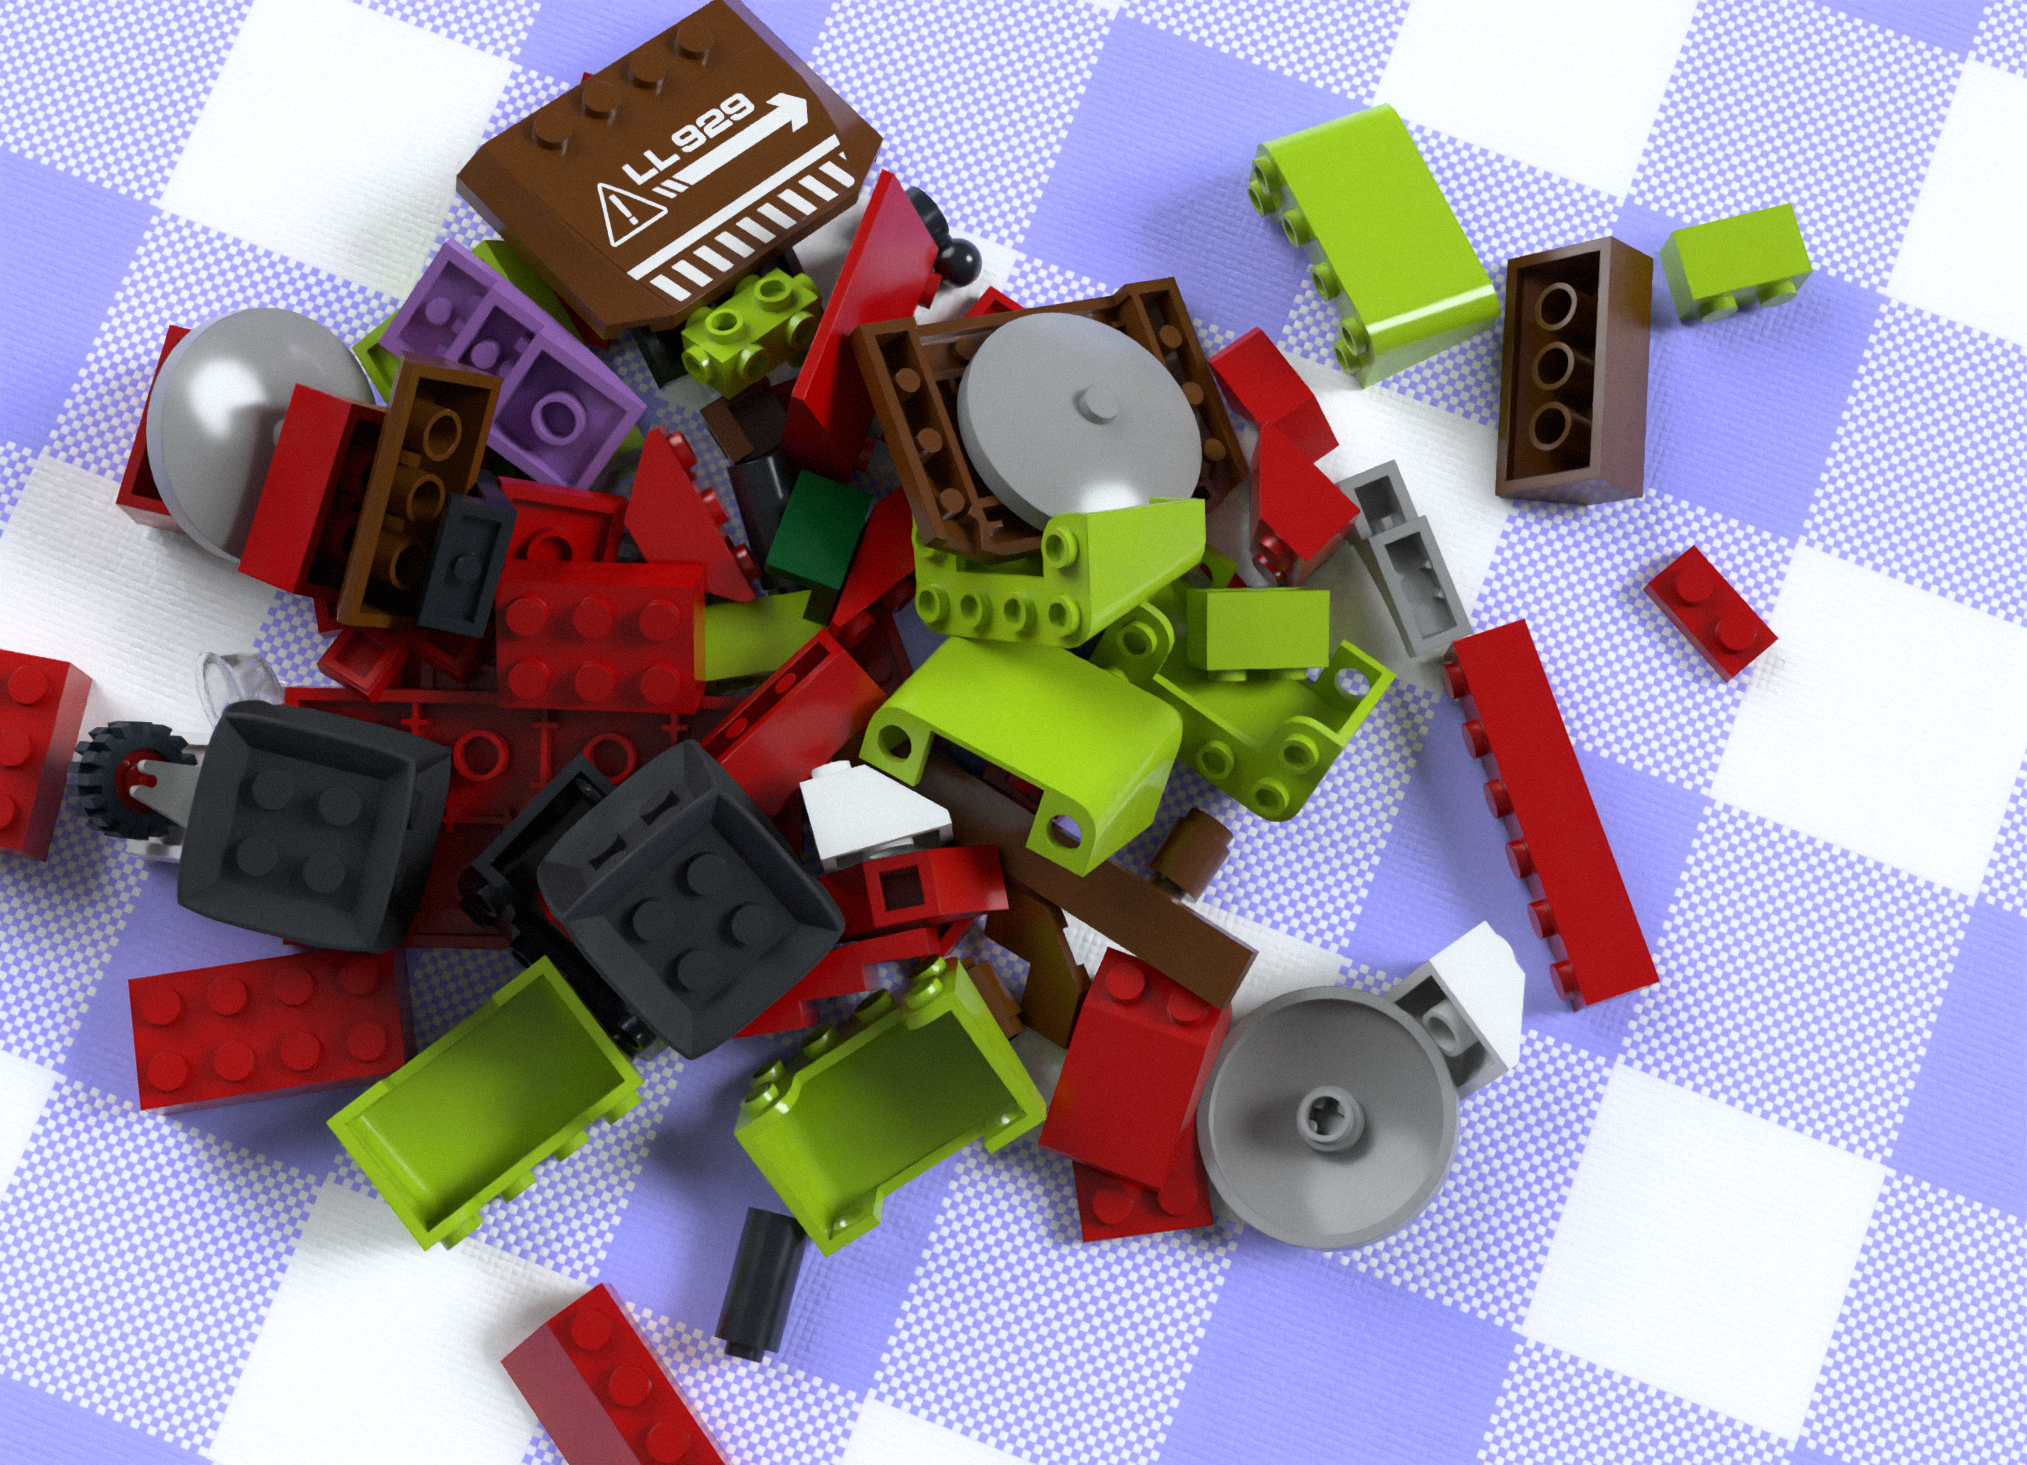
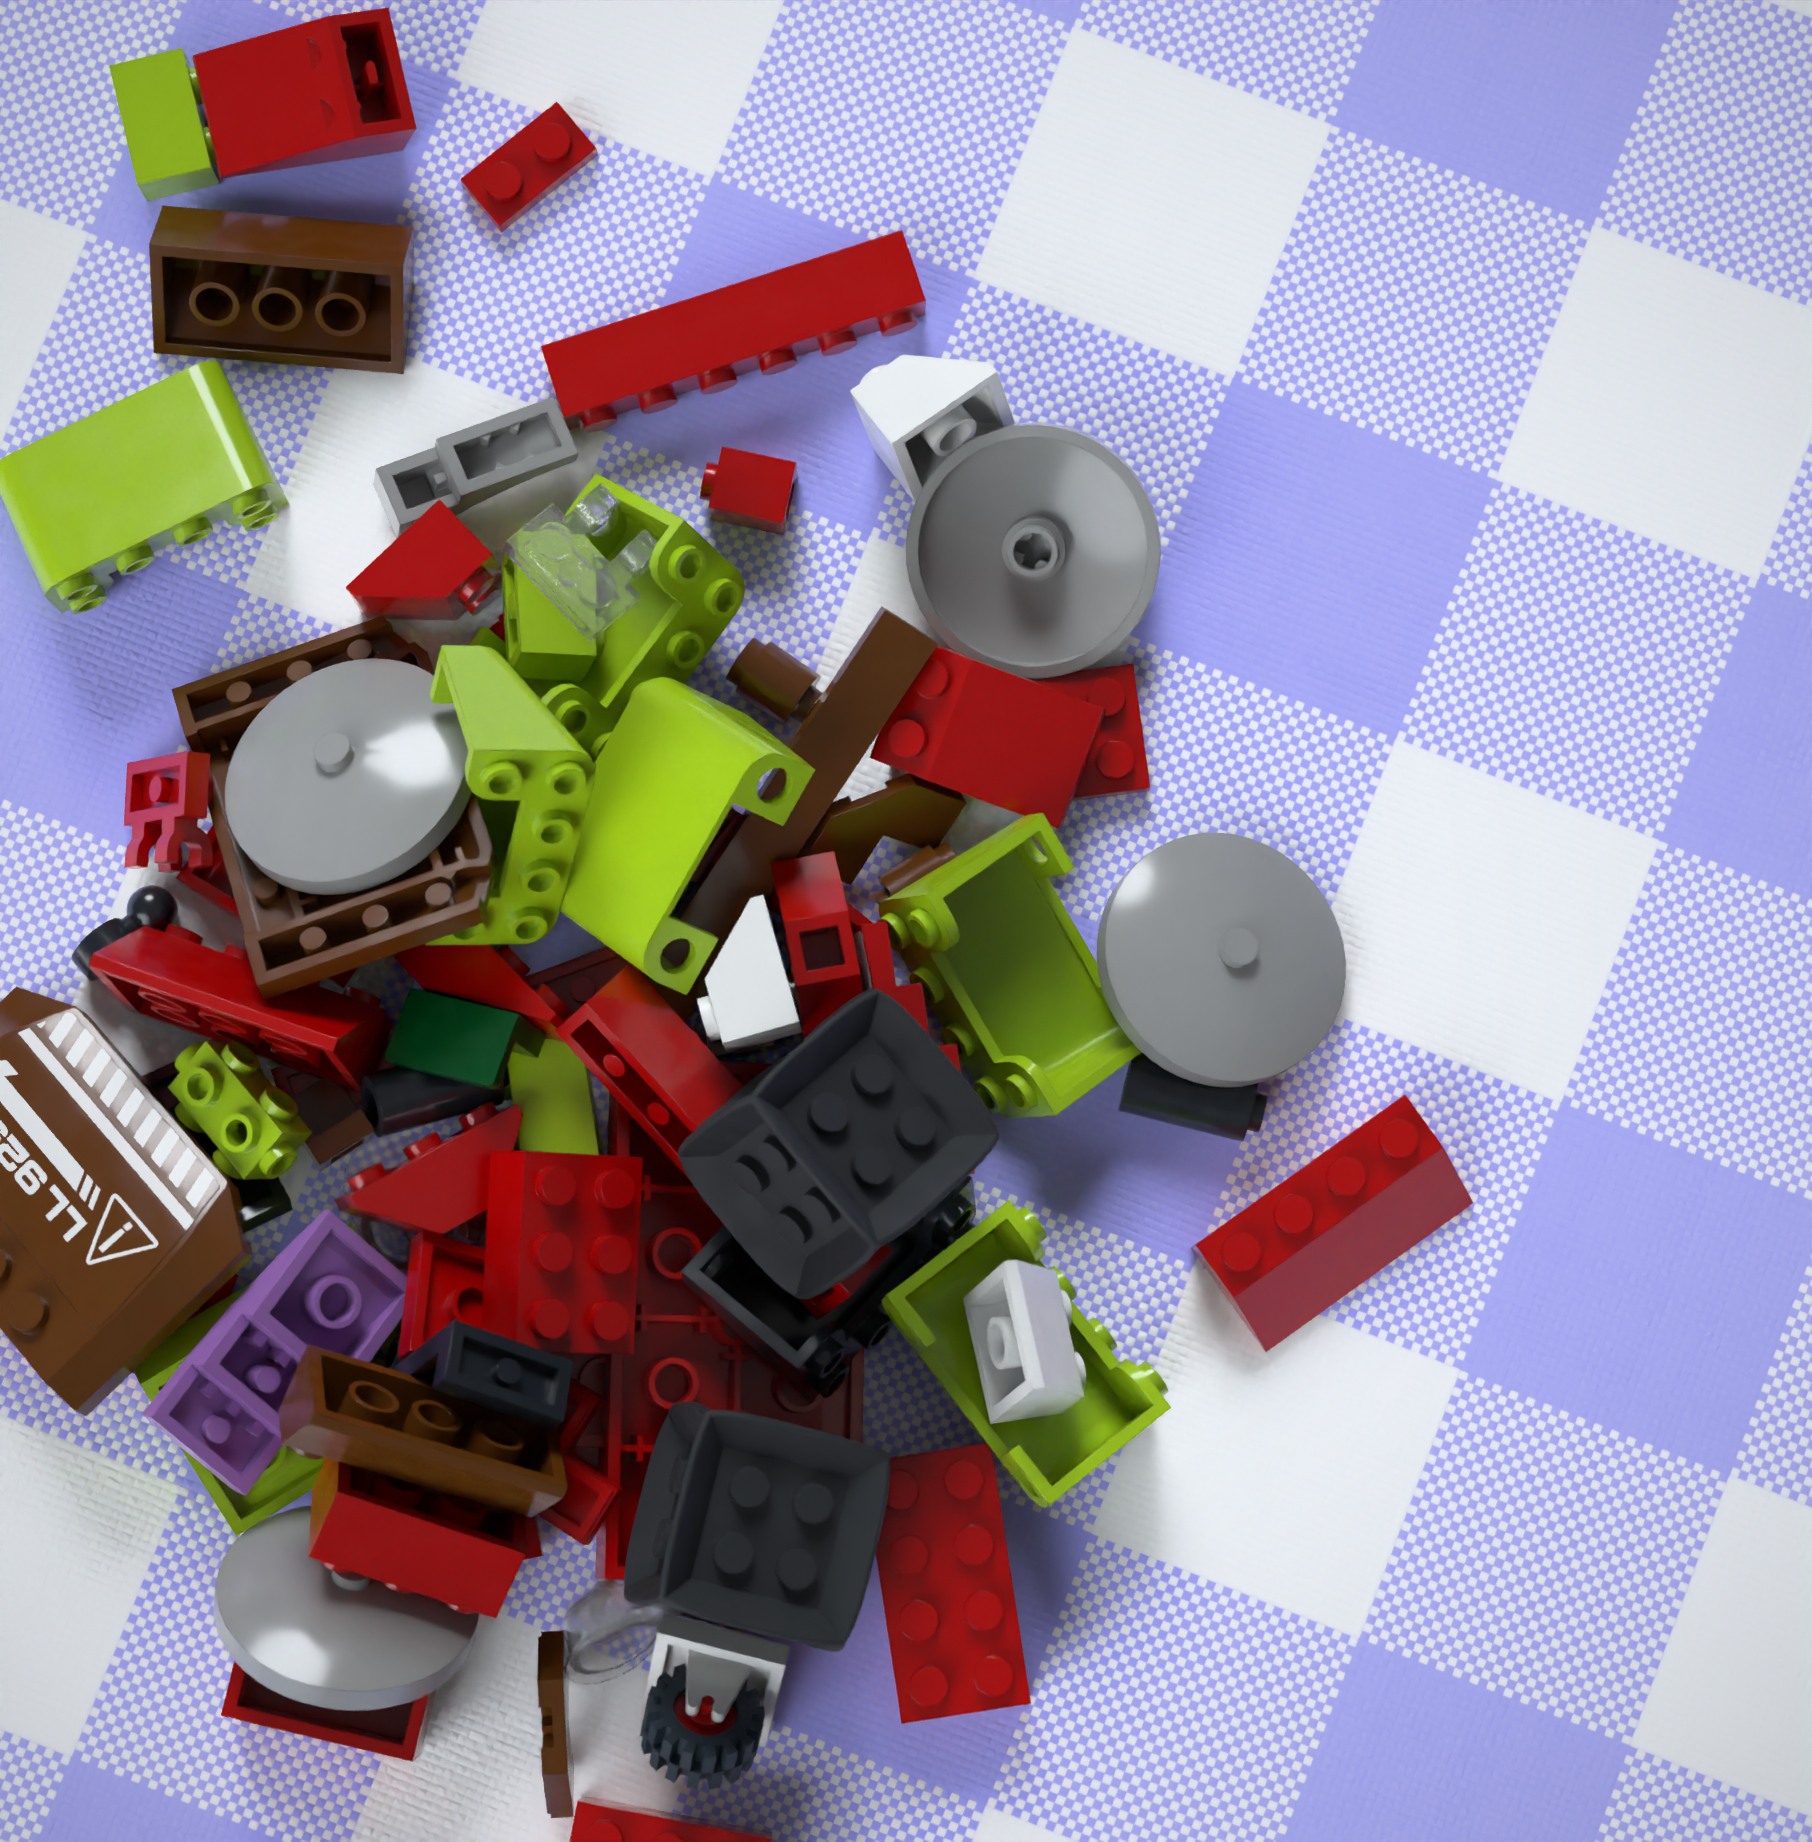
camera: 90 degrees left, 5 degrees up
(176, 641) = (556, 1740): none -> reddish brown tile
(497, 1102) = (1024, 1343): none -> white slope
(900, 1314) = (1221, 959): none -> light grey dish
(1057, 268) = (163, 808): none -> red plate
(1266, 387) = (301, 591): red slope -> none
(1292, 645) = (572, 571): none -> clear plate
(1385, 831) = (750, 490): none -> red brick
(1771, 389) = (306, 95): none -> red slope

